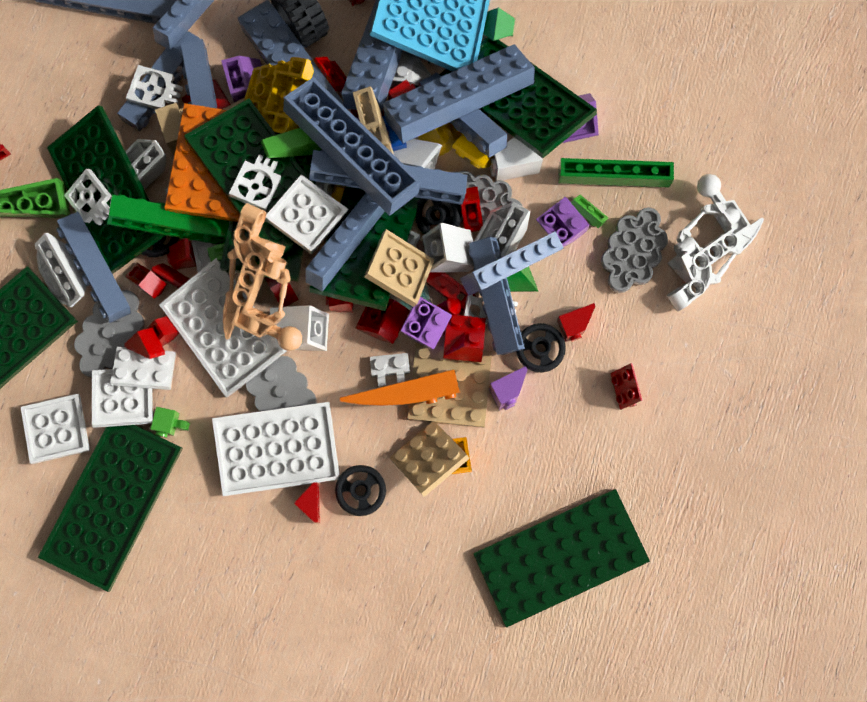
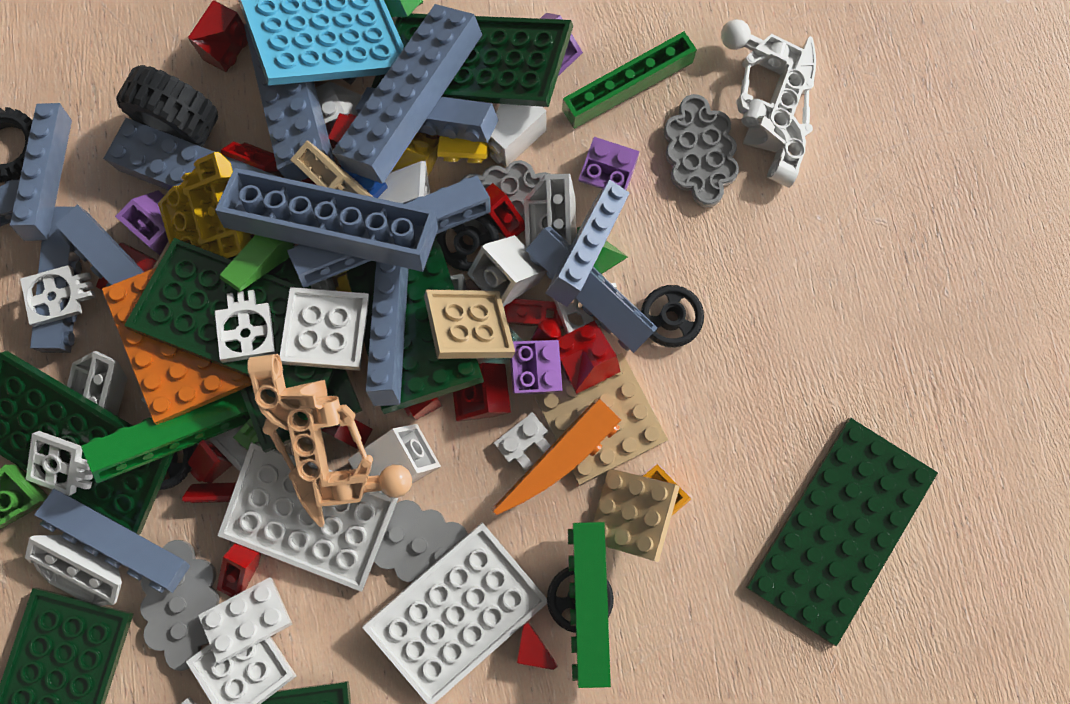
camera: 30 degrees left, 0 degrees up
(146, 280) = (184, 517): red slope -> none
(146, 344) = (231, 591): red slope -> none
(166, 421) = (310, 664): bright green brick -> none
(170, 120) = (98, 320): tan brick -> none
(364, 494) = (591, 605): none -> green brick
(507, 389) = (671, 383): medium lavender slope -> none
(575, 322) = (692, 265): red slope -> none
(589, 211) = (629, 138): bright green plate -> none
(626, 386) = (791, 300): red hinge -> none

